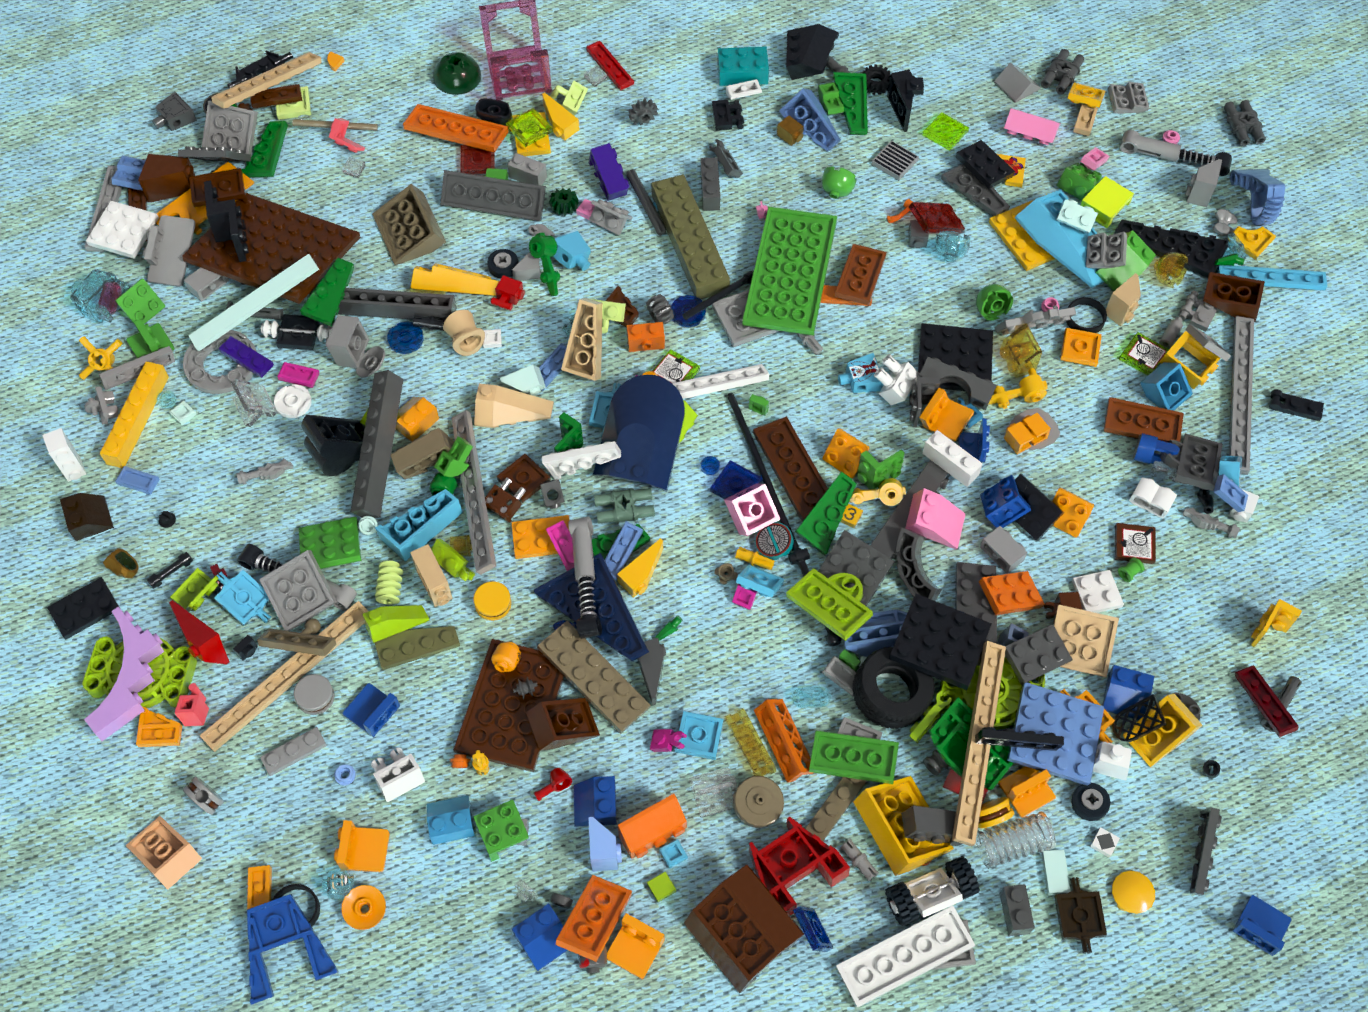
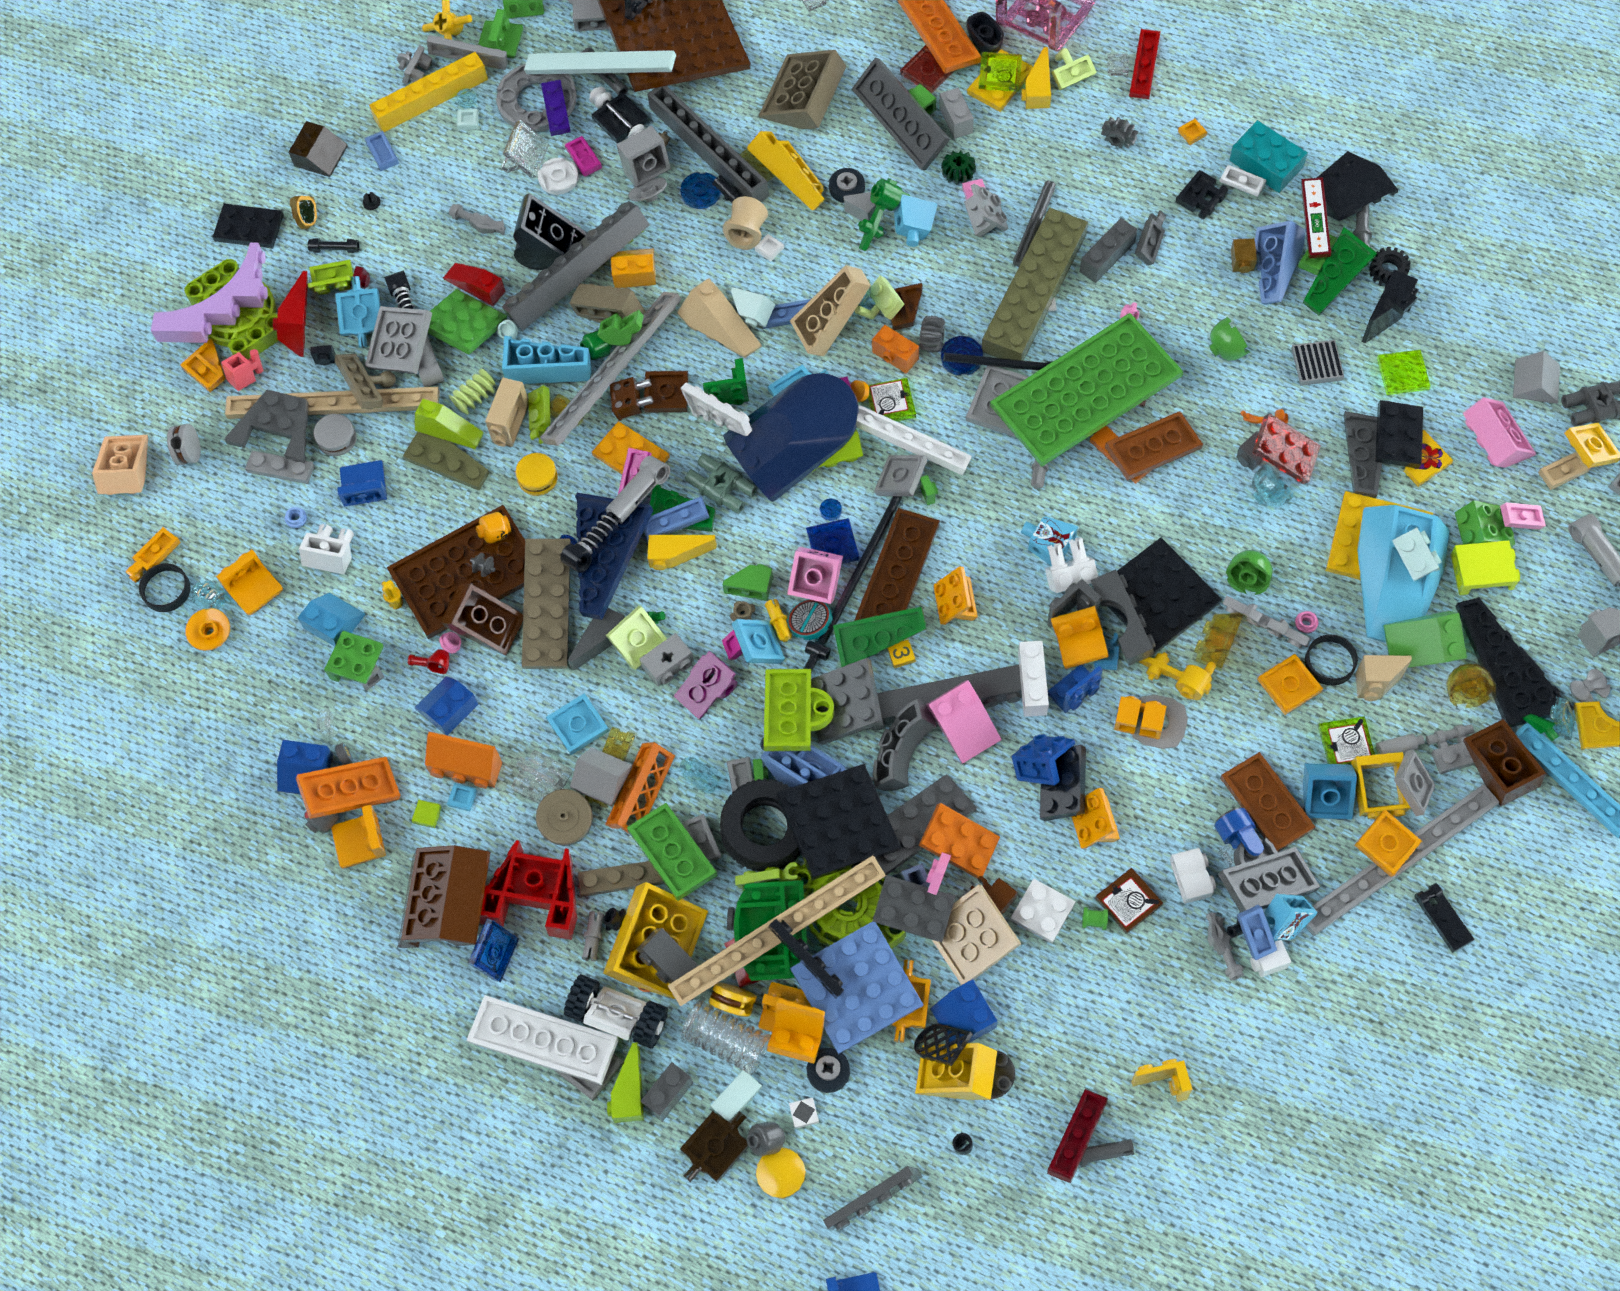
camera: 50 degrees right, 5 degrees up
(64, 454) = (341, 85): white brick -> none
(257, 715) = (277, 415): none -> dark grey wing
(276, 925) = (136, 586): blue wing -> none
(308, 511) = (476, 282): none -> red slope
(326, 298) = (659, 103): green wing -> none
(459, 761) = (379, 578): orange plate -> none
(508, 293) = (823, 214): red brick -> none
(540, 228) = (911, 178): light grey arm -> none
(548, 485) = (680, 420): dark grey brick -> none
(553, 759) = (450, 642): none -> bright pink plate
(603, 848) = (408, 739): light blue slope -> none
(608, 171) = (1025, 168): dark purple wedge -> none
(664, 739) = (547, 704): dark pink plate -> none
(680, 645) = (635, 636): none -> yellowish green plate
(681, 84) = (1192, 131): none -> light orange tile
(713, 549) = (750, 582): none -> bright green slope
(713, 654) = (673, 650): none -> light grey brick
(734, 408) = (900, 475): none -> light grey tile
(755, 637) = (699, 691): none -> piece
(755, 752) = (599, 775): none -> light grey slope
(813, 77) = (1315, 218): none -> tile
(857, 835) = (614, 919): none -> black plate
(873, 473) = (965, 639): bright green bracket -> none
(889, 492) = (948, 662): yellow piece -> none
(994, 936) = (627, 1091): none -> lime slope
(1003, 549) = (999, 799): light grey brick -> none
(1029, 619) = (937, 873): none -> bright pink plate
(1053, 793) = (797, 1031): none -> light orange bracket
(1106, 250) = (1410, 611): light grey slope -> none
(1106, 878) = (766, 1138): none -> dark grey head
(1112, 760) = (882, 1055): white torso -> none
(1230, 387) = (1388, 843): none -> light orange plate

